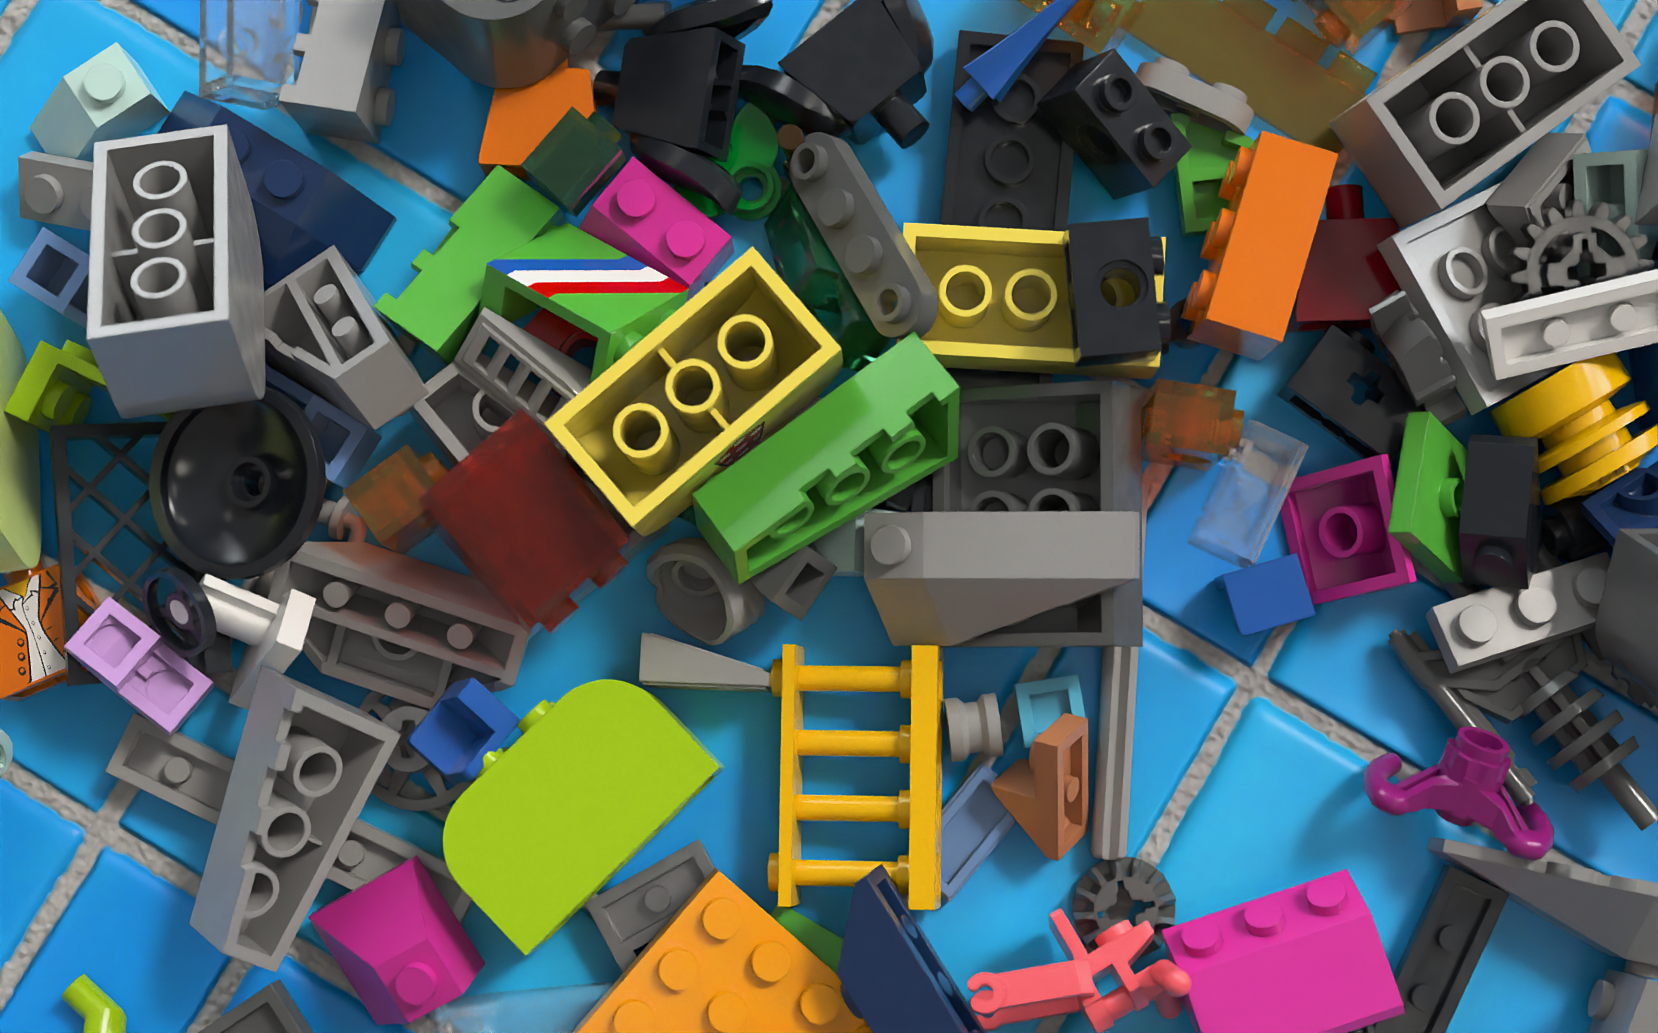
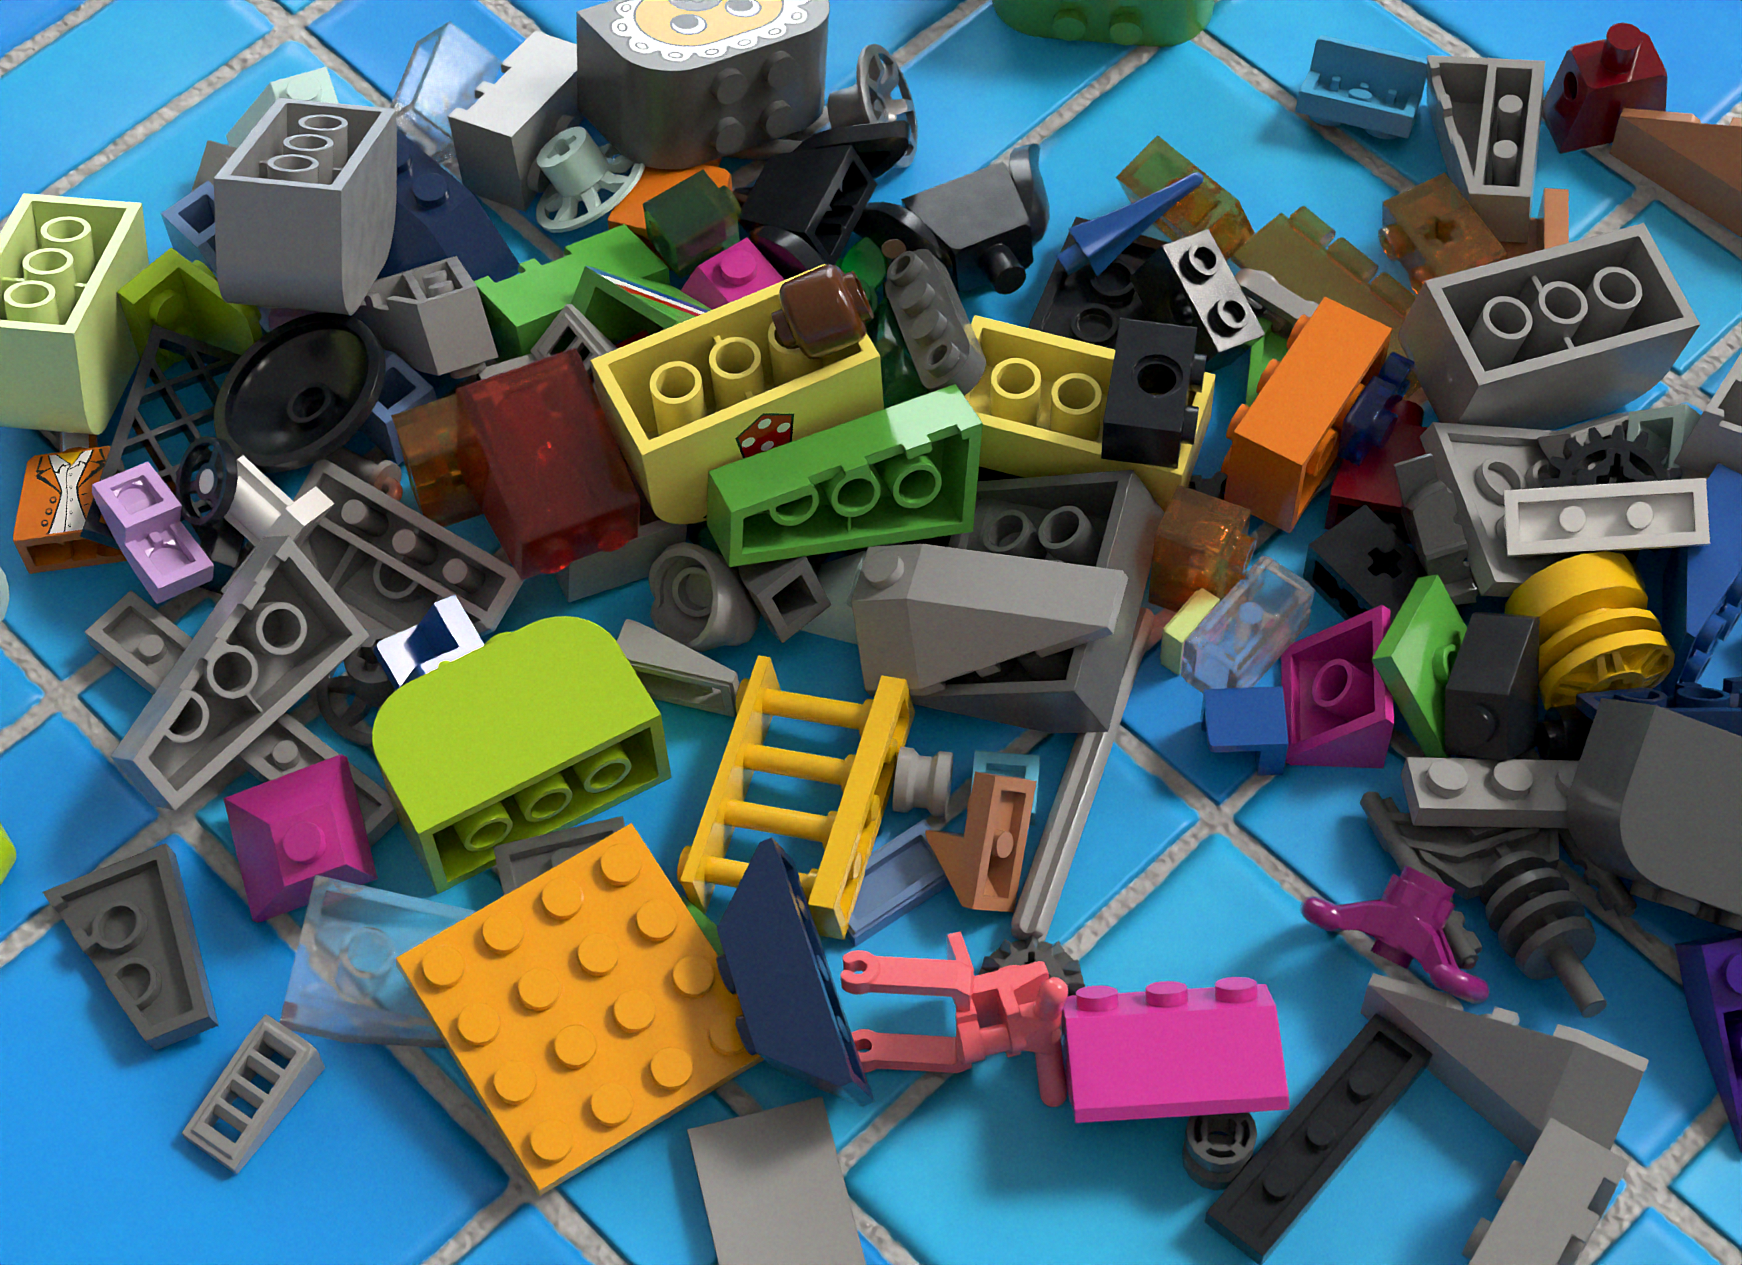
camera: 15 degrees right, 25 degrees down
(429, 107) = (576, 174): none -> light aqua wheel
(775, 327) = (822, 312): none -> reddish brown head
(1186, 497) = (1182, 626): none -> yellowish green tile
(1330, 237) = (1371, 417): none -> clear blue plate

